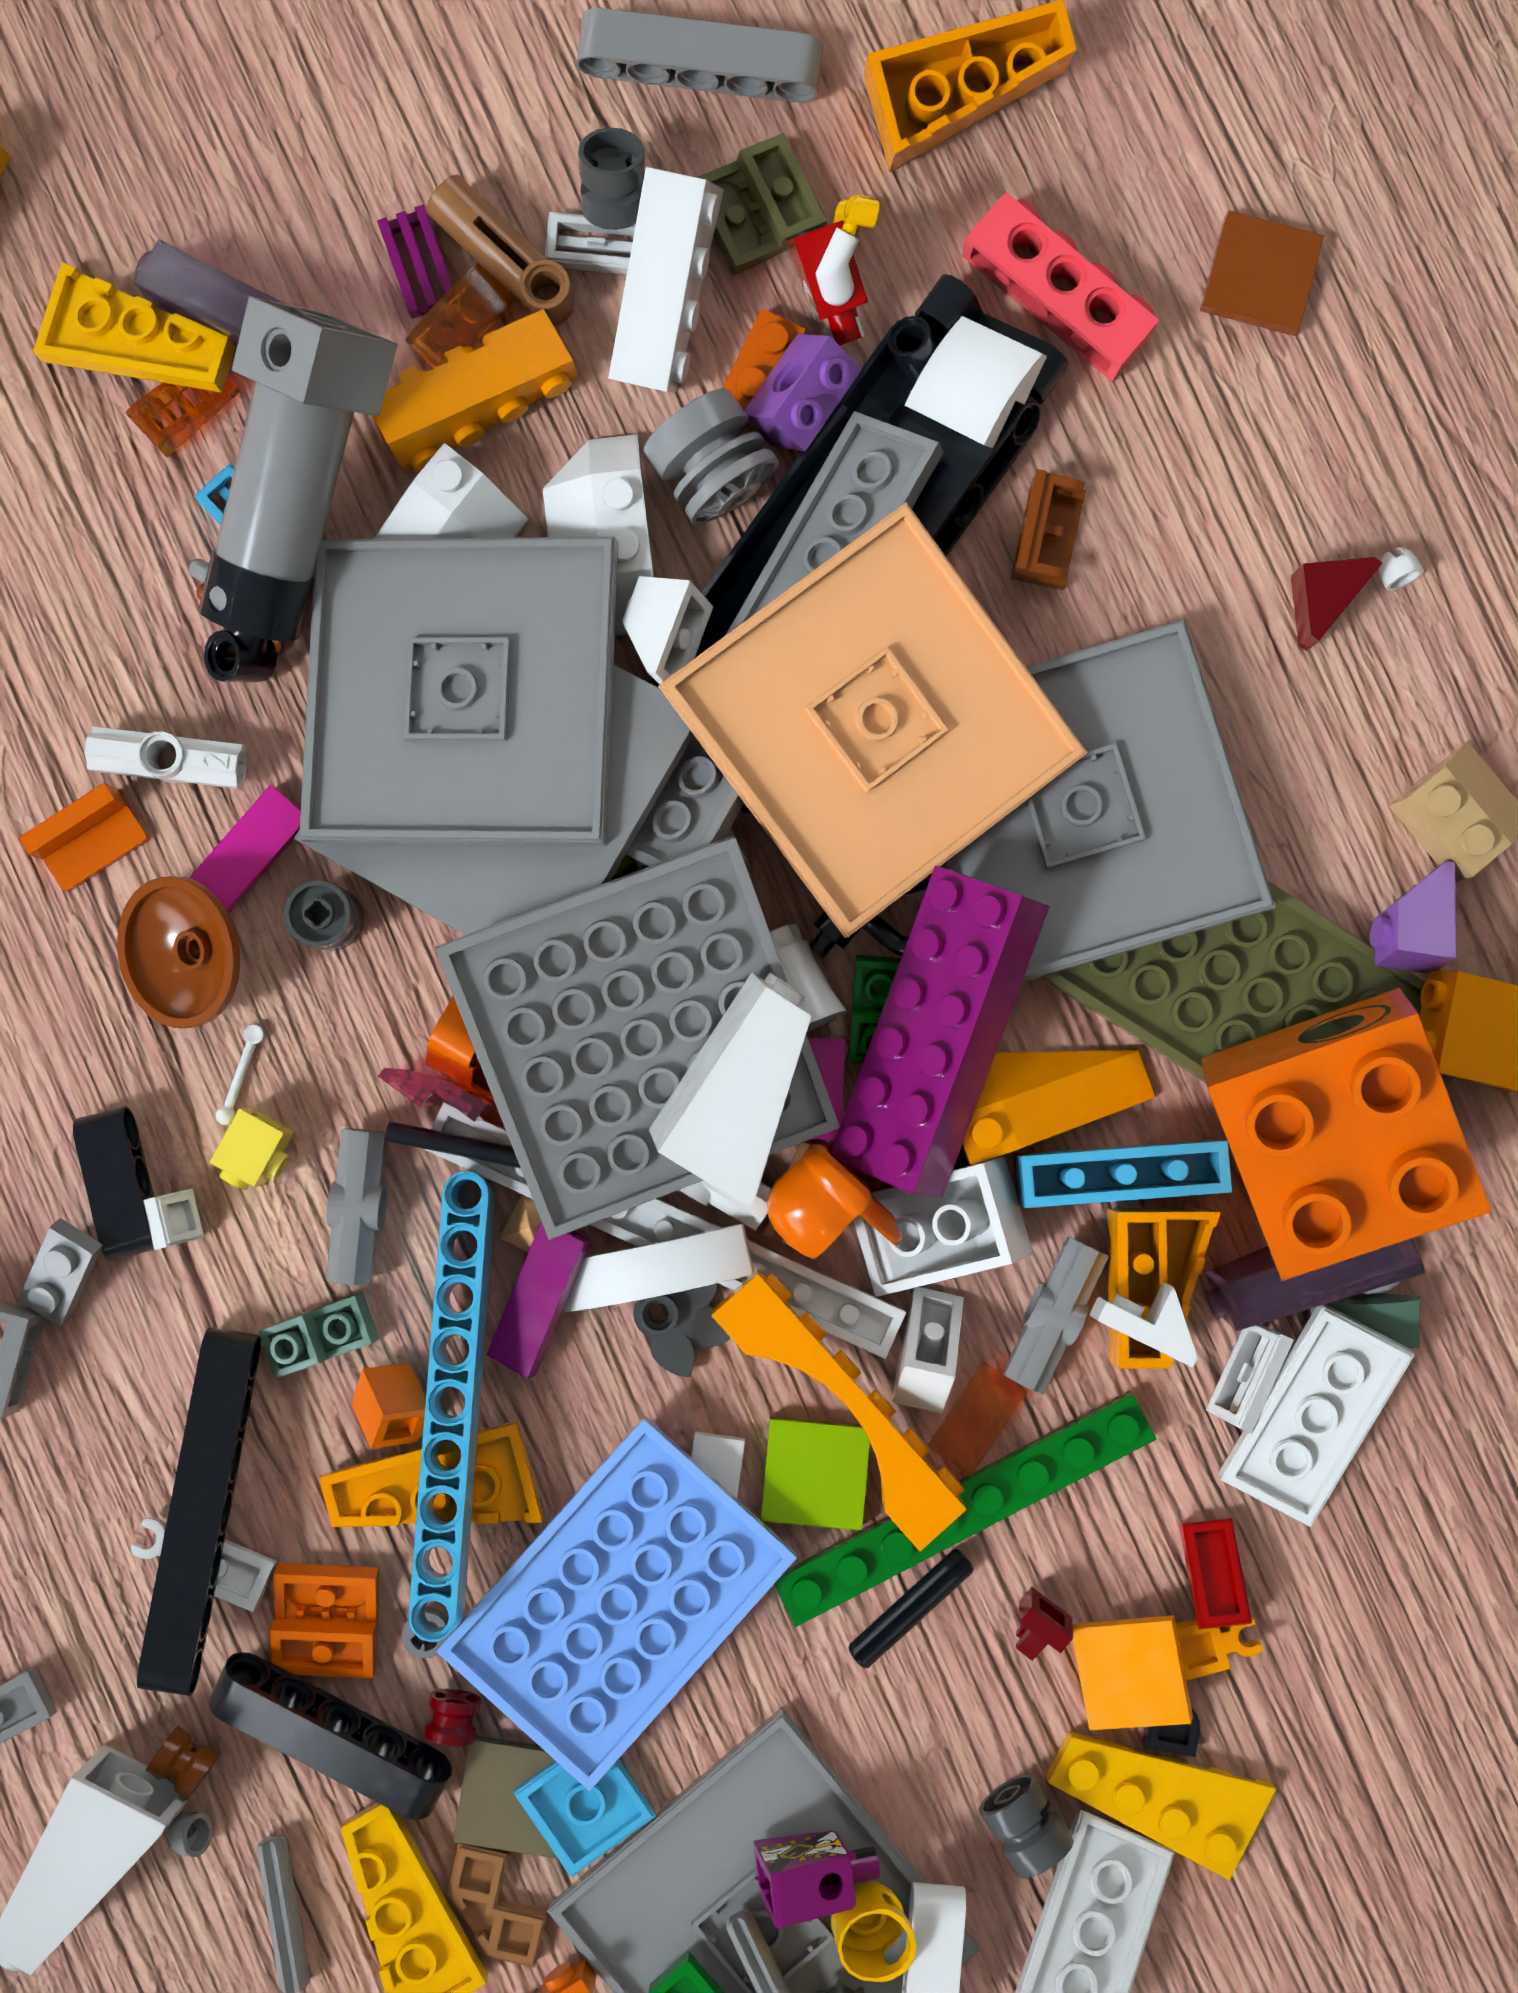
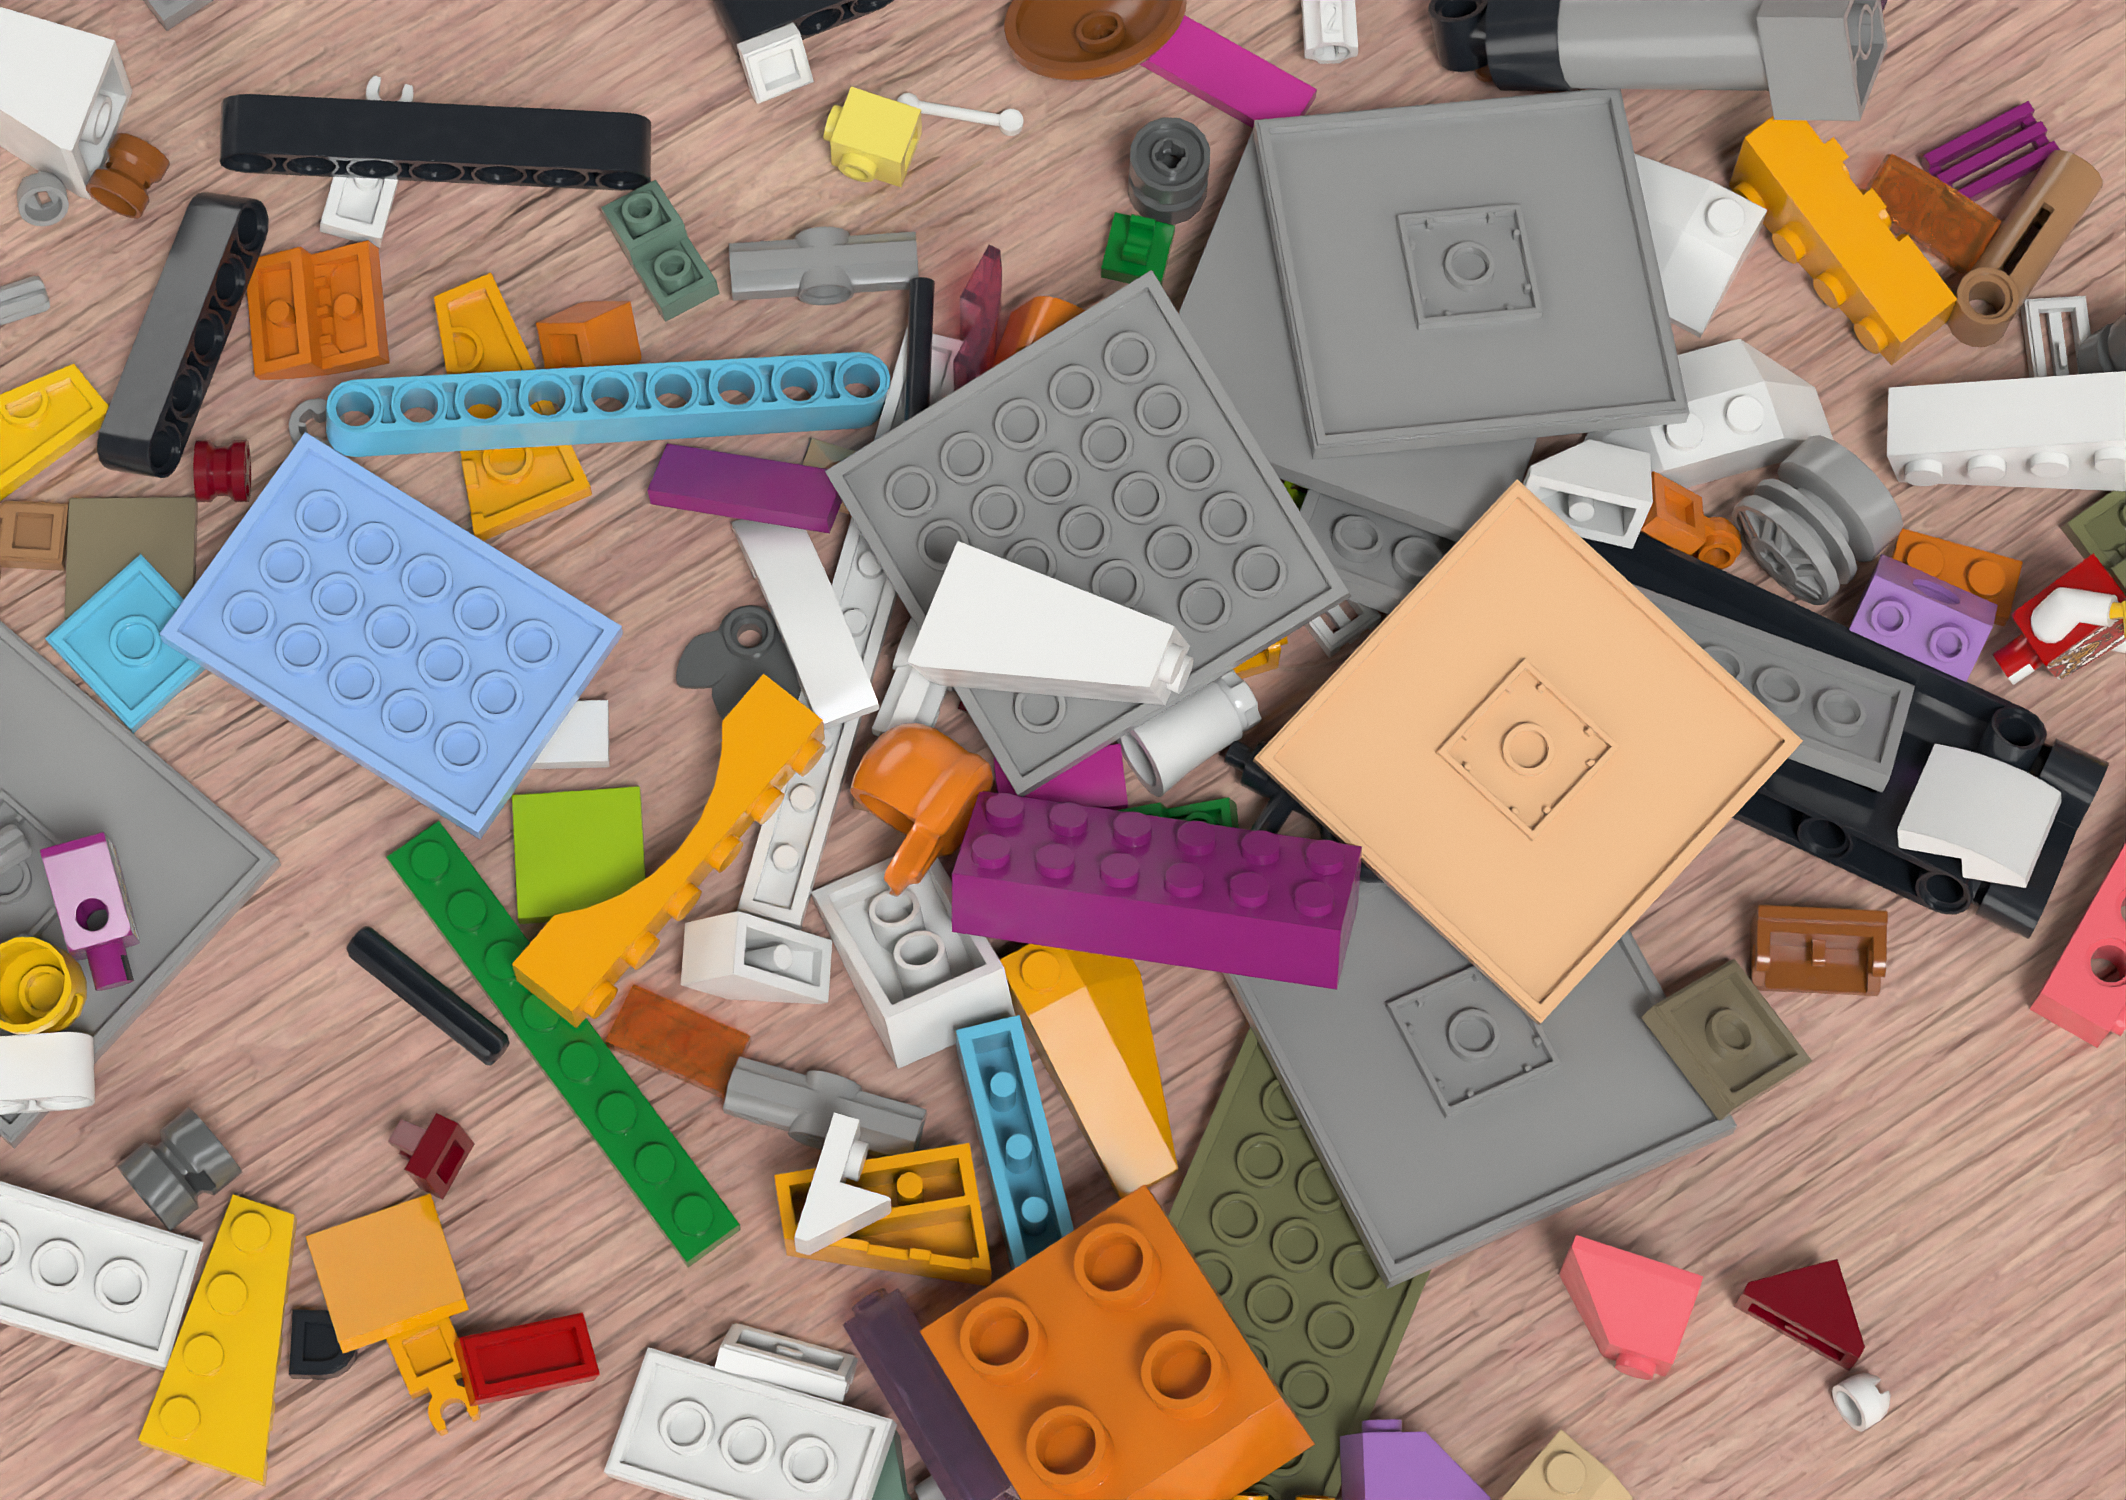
camera: 75 degrees right, 15 degrees down
(383, 952) = (1137, 247): none -> green tile
(698, 559) = (1680, 522): none -> orange plate
(1112, 613) = (1726, 1039): none -> dark tan tile
(1314, 724) = (1630, 1304): none -> coral slope

